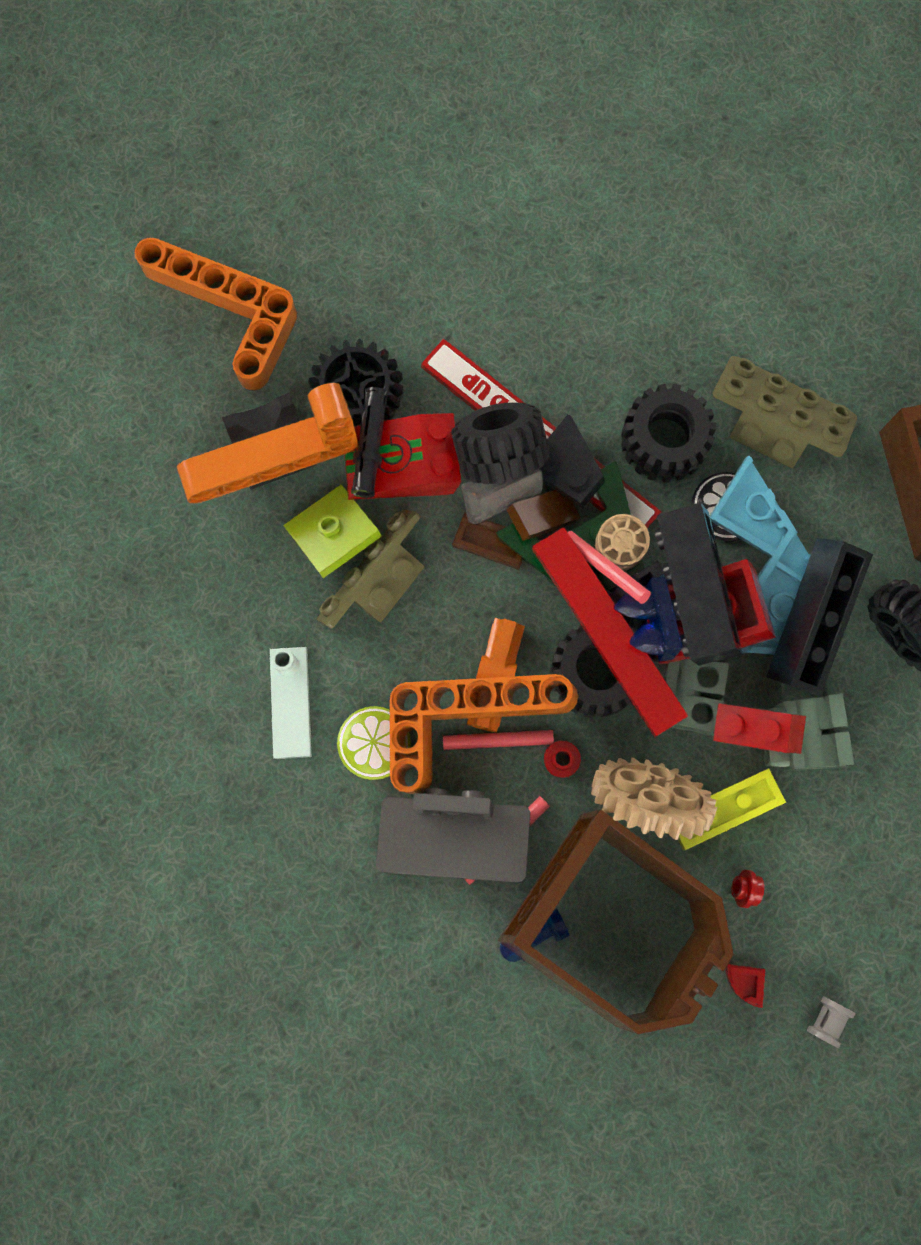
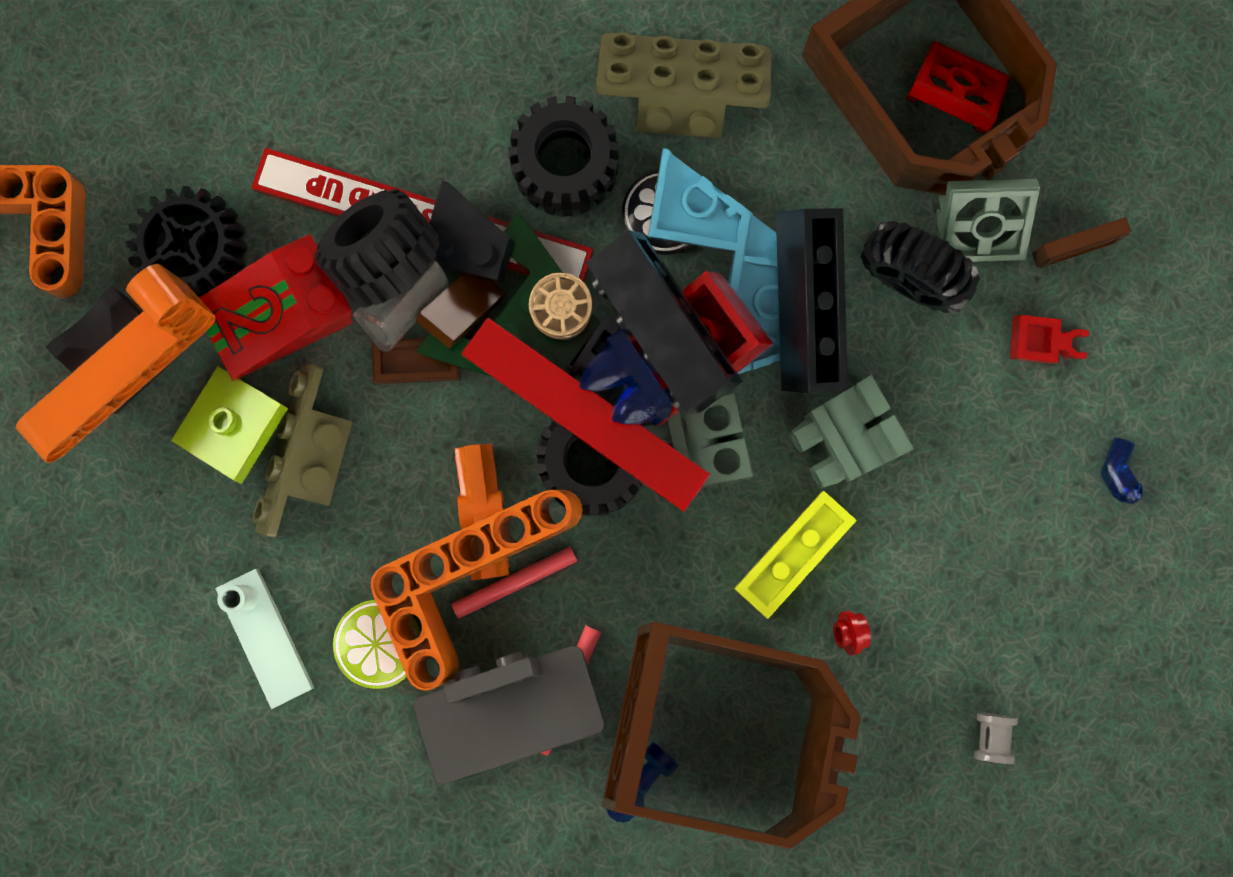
camera: 25 degrees left, 5 degrees up
(367, 456) = (231, 323): black pin -> none
(556, 769) = (583, 564): red plate -> none
(611, 570) = (557, 344): coral bar -> none
(653, 798) = (708, 580): tan gear -> none
(747, 983) = (891, 733): red tile -> none
(759, 728) = (795, 454): red brick -> none

